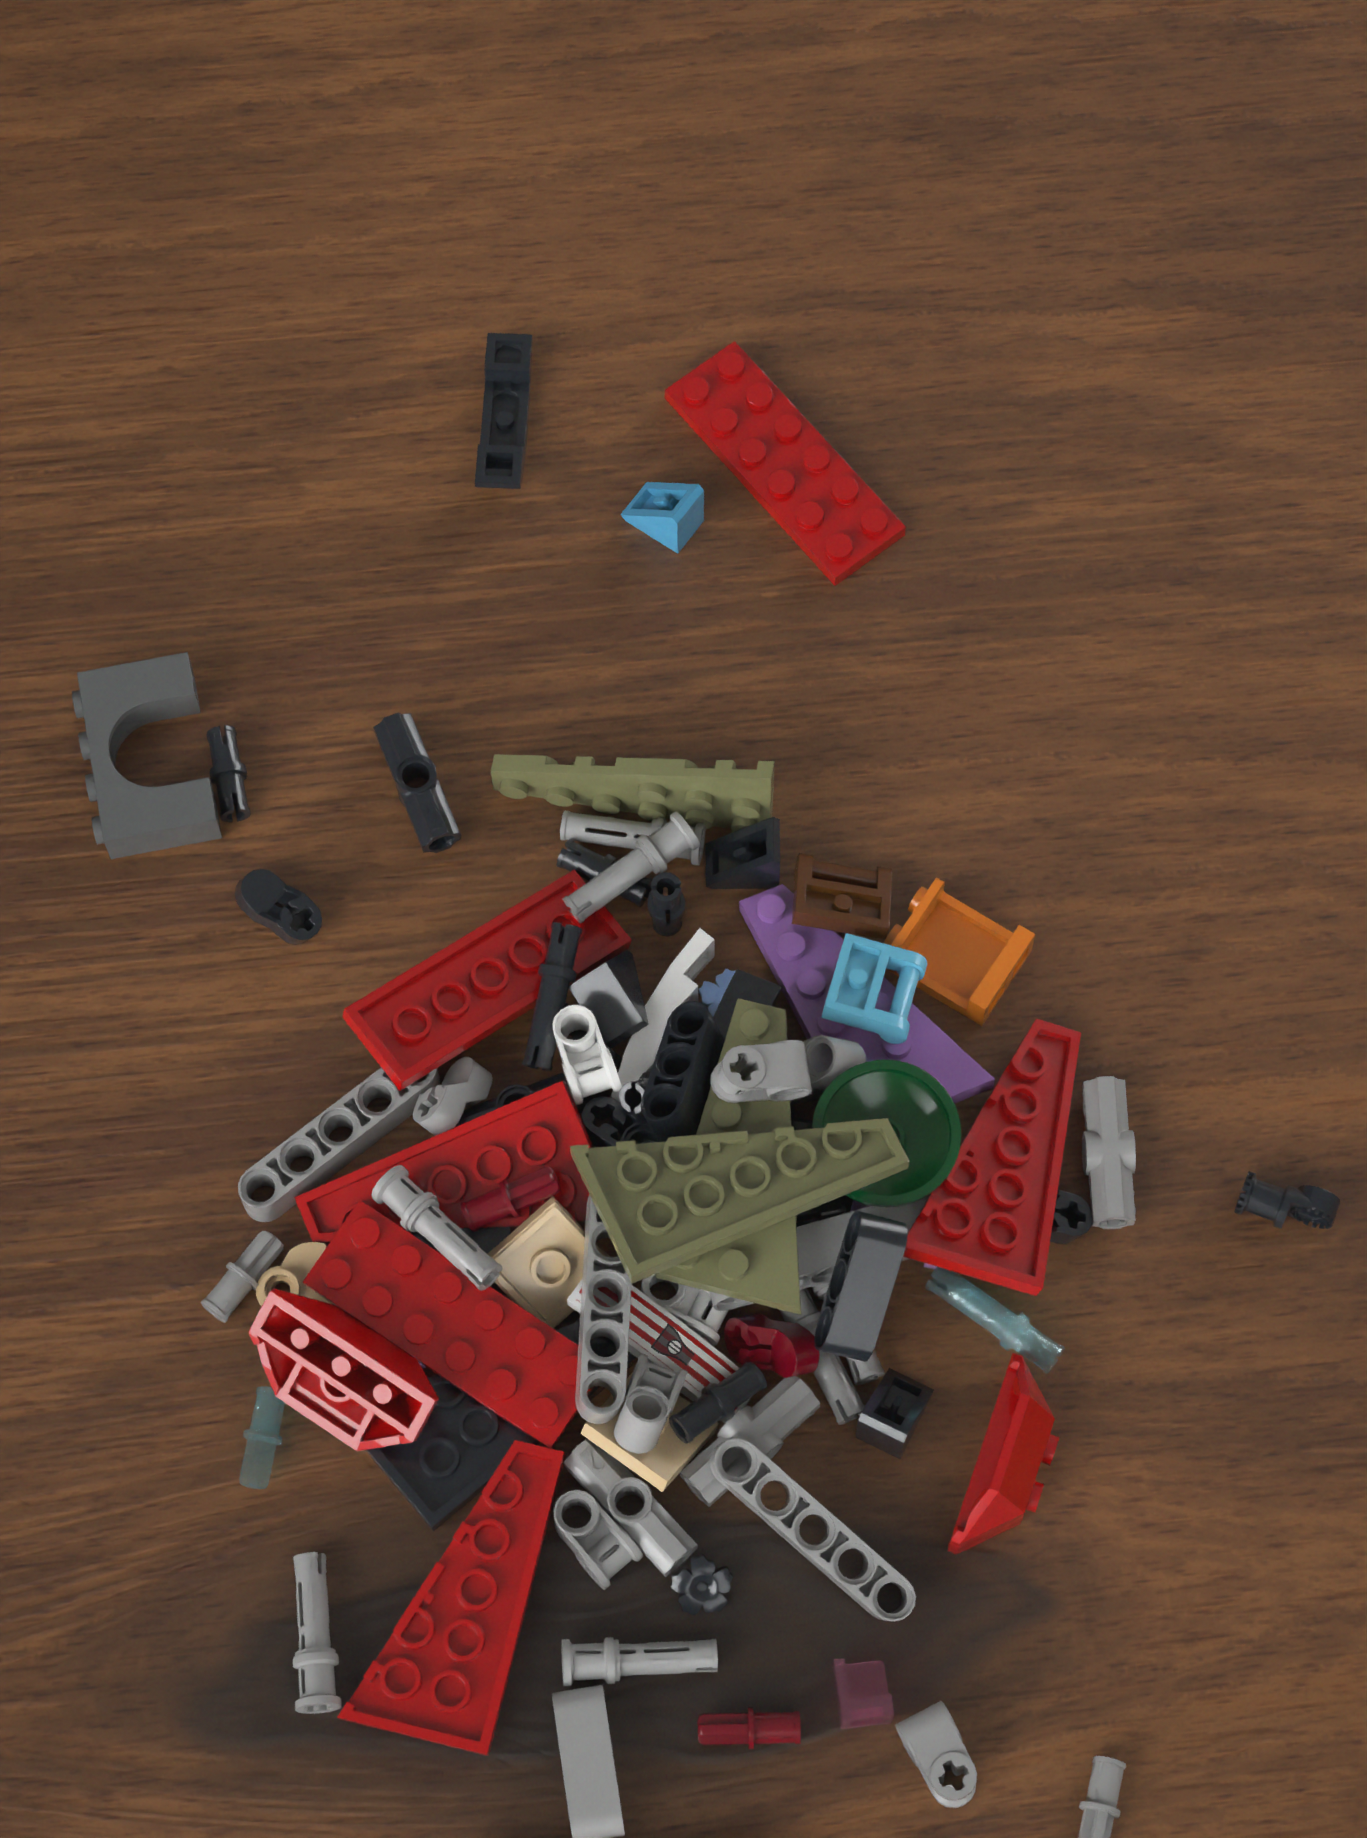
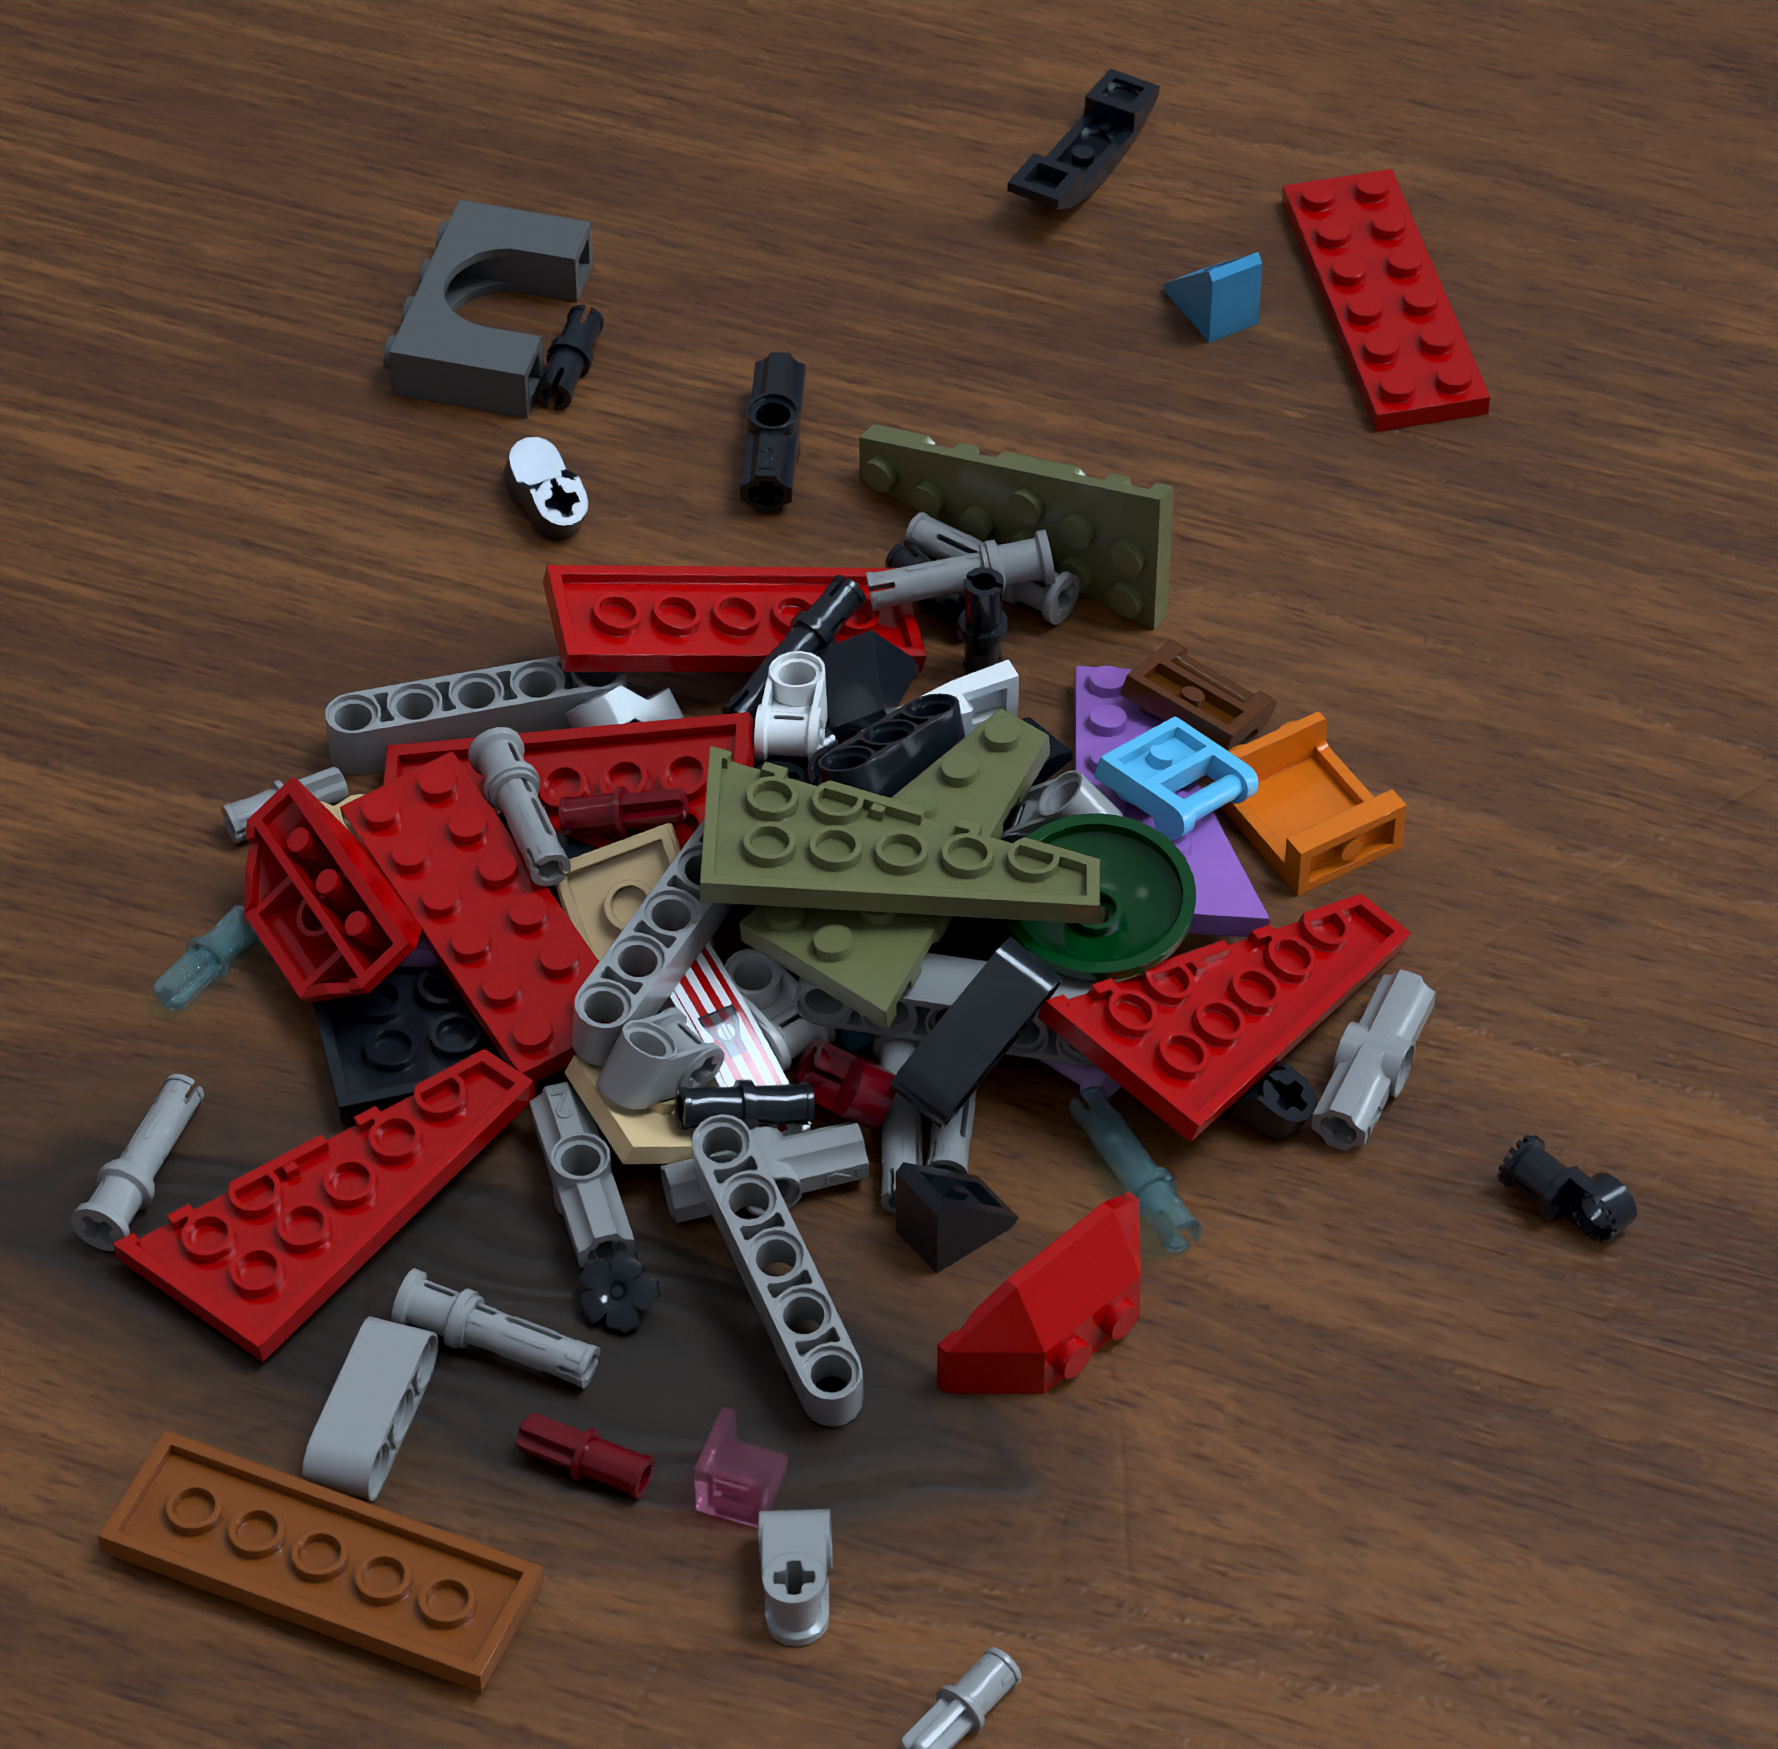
camera: 25 degrees right, 20 degrees down
(596, 1539) = (521, 1196): light grey piece -> none
(745, 858) = (1114, 628): black slope -> none
(770, 1071) = (983, 767): light grey piece -> none

